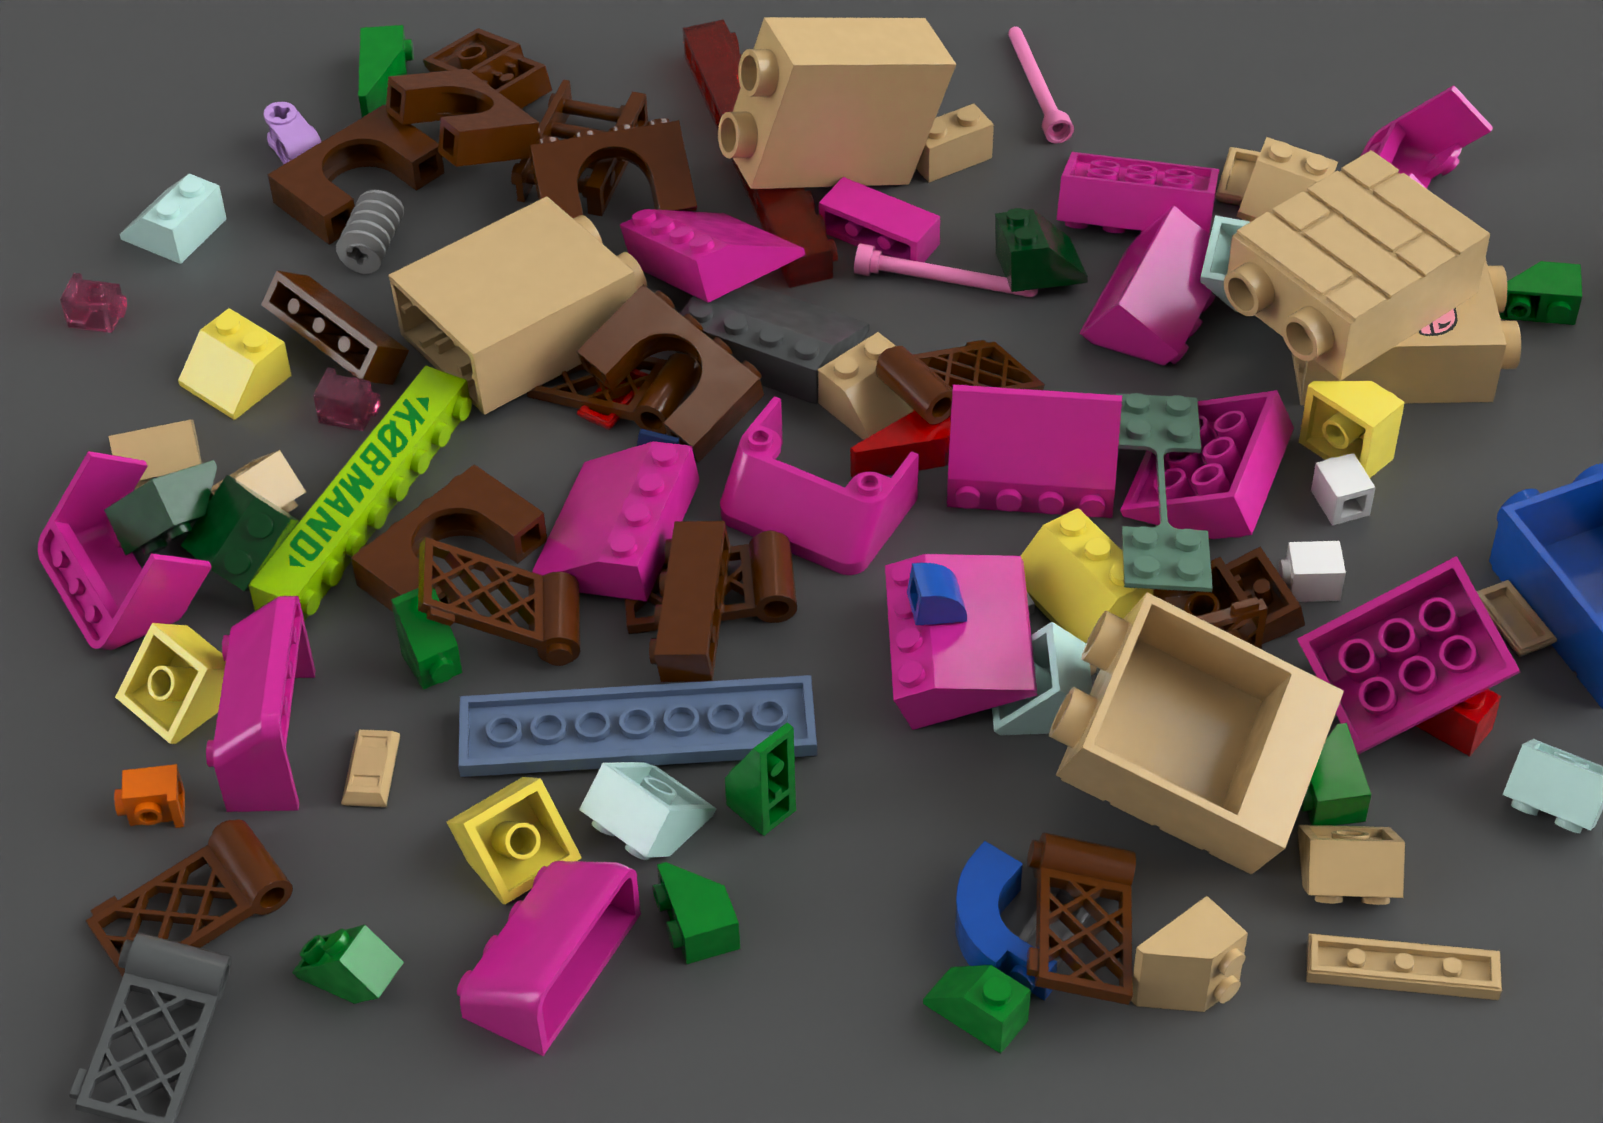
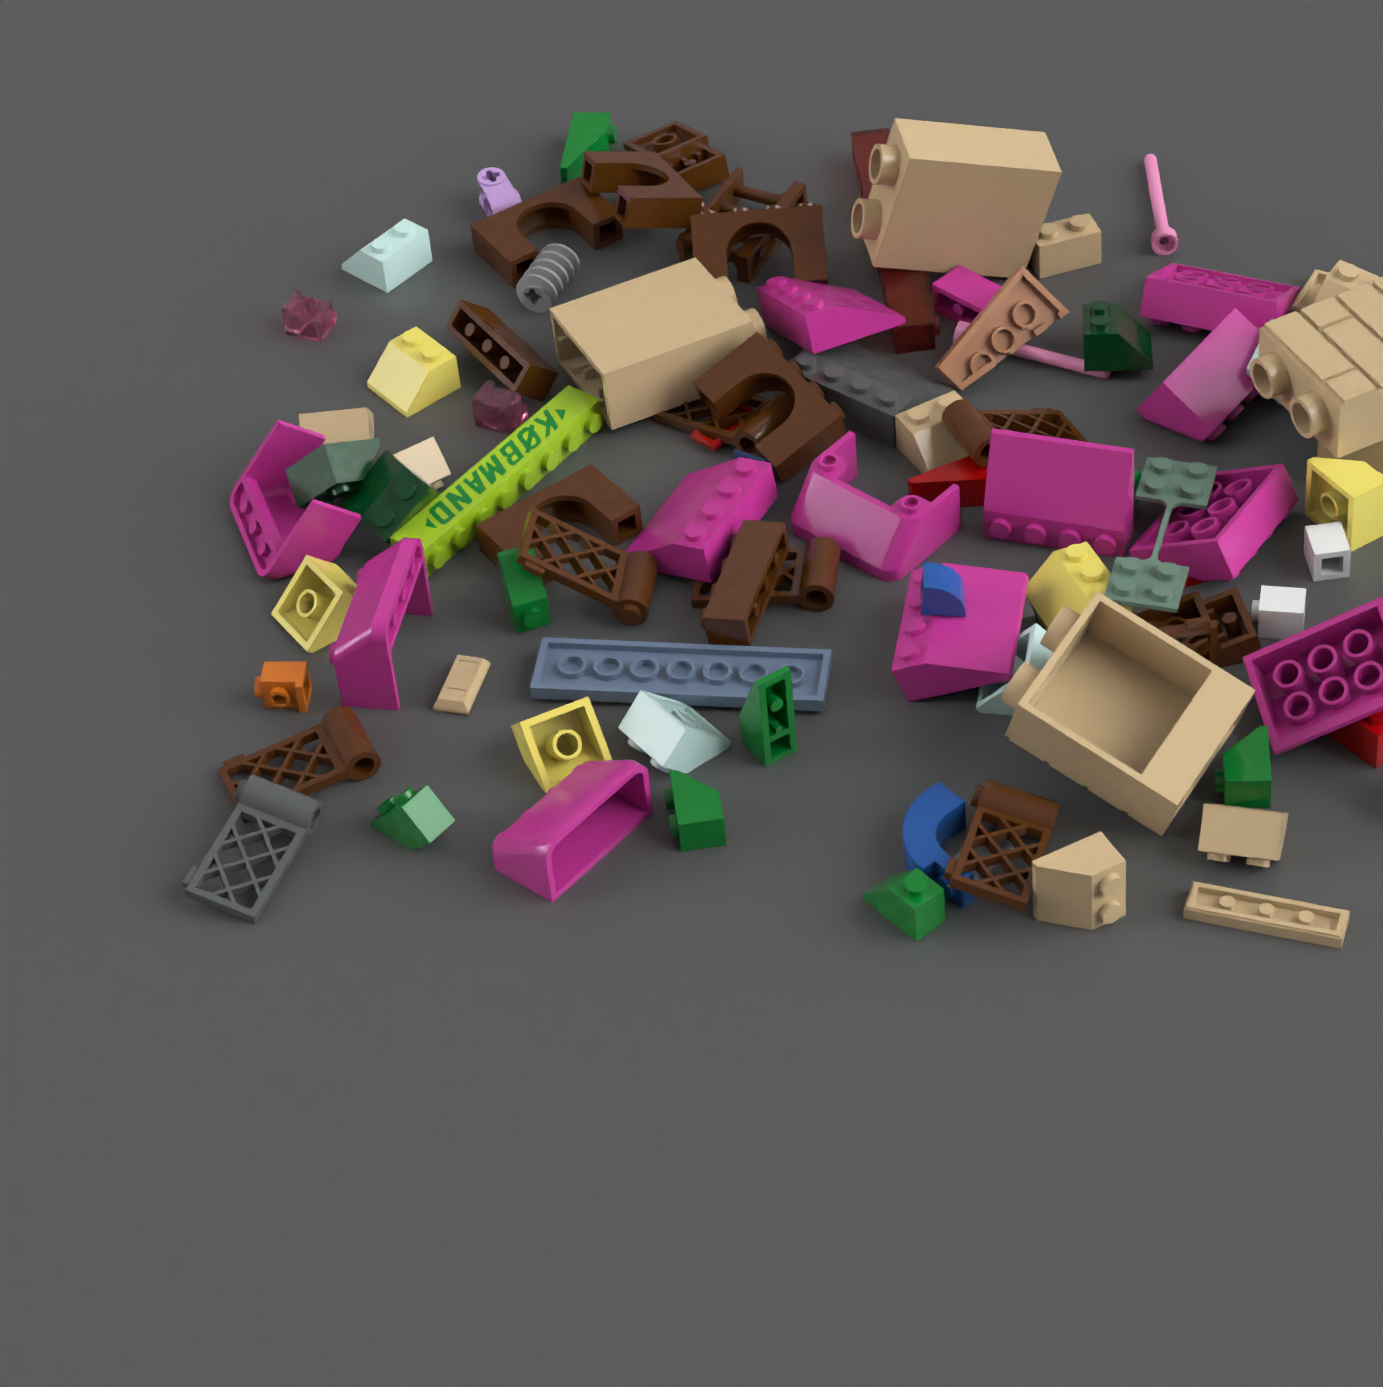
camera: 15 degrees right, 5 degrees down
(918, 240) = (1006, 323): none -> nougat wing

